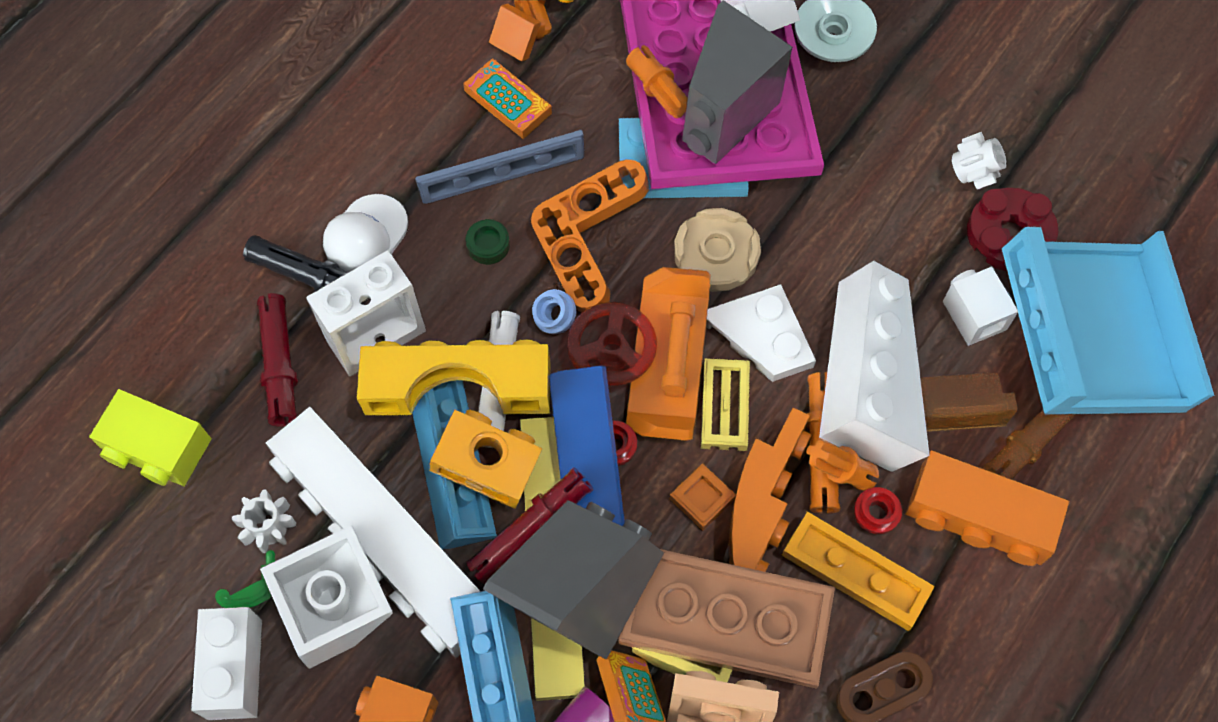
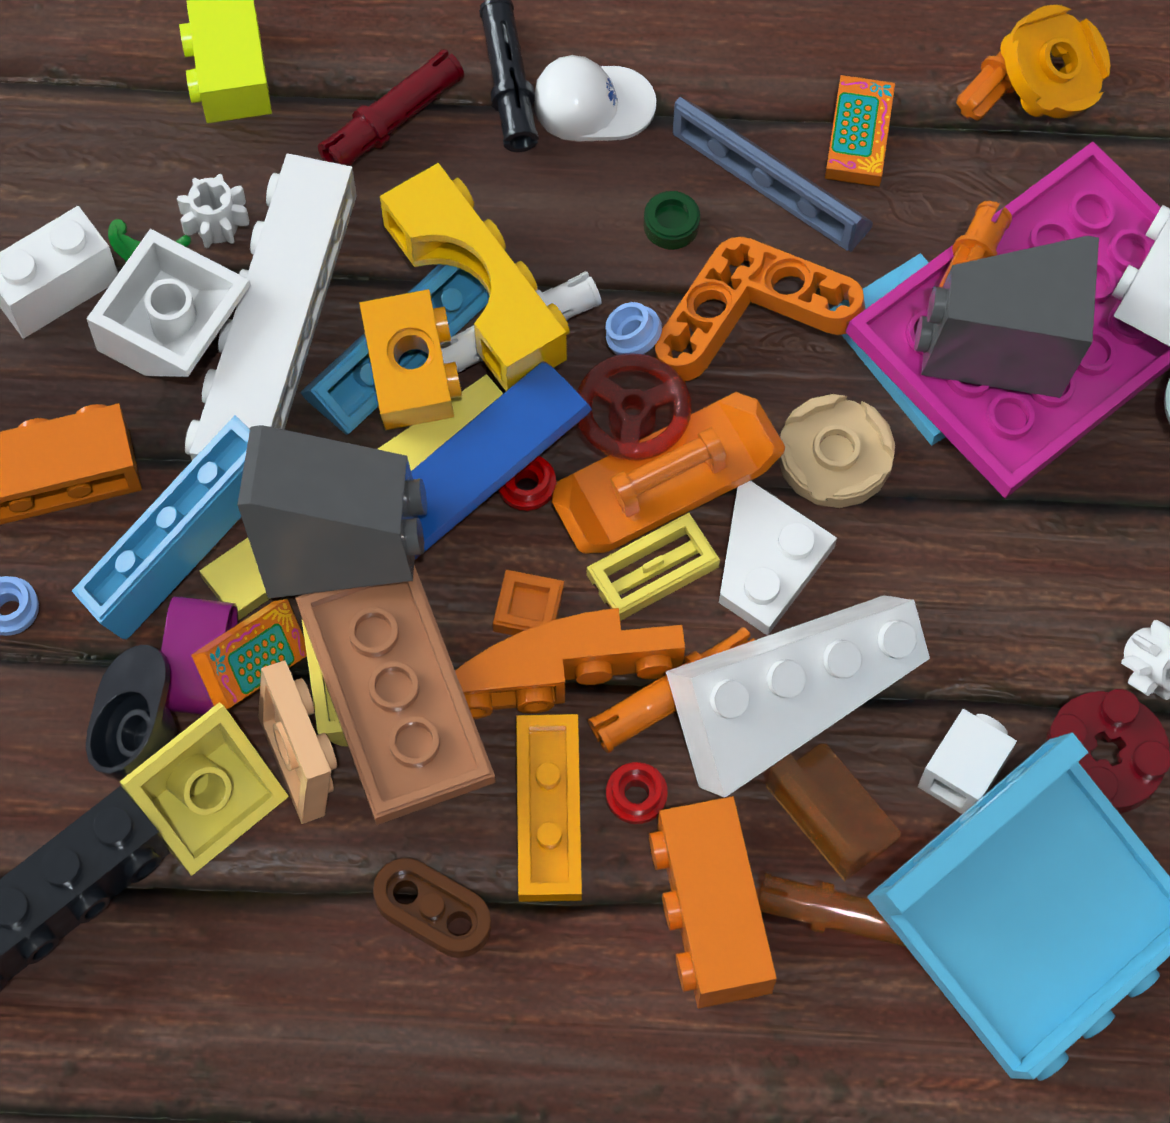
camera: 55 degrees right, 0 degrees up
(350, 324) = (508, 127): white window -> none
(514, 32) = (943, 83): orange tile -> none
(544, 506) = (423, 455): dark red pin -> none
(842, 464) = (651, 713): orange axle -> none

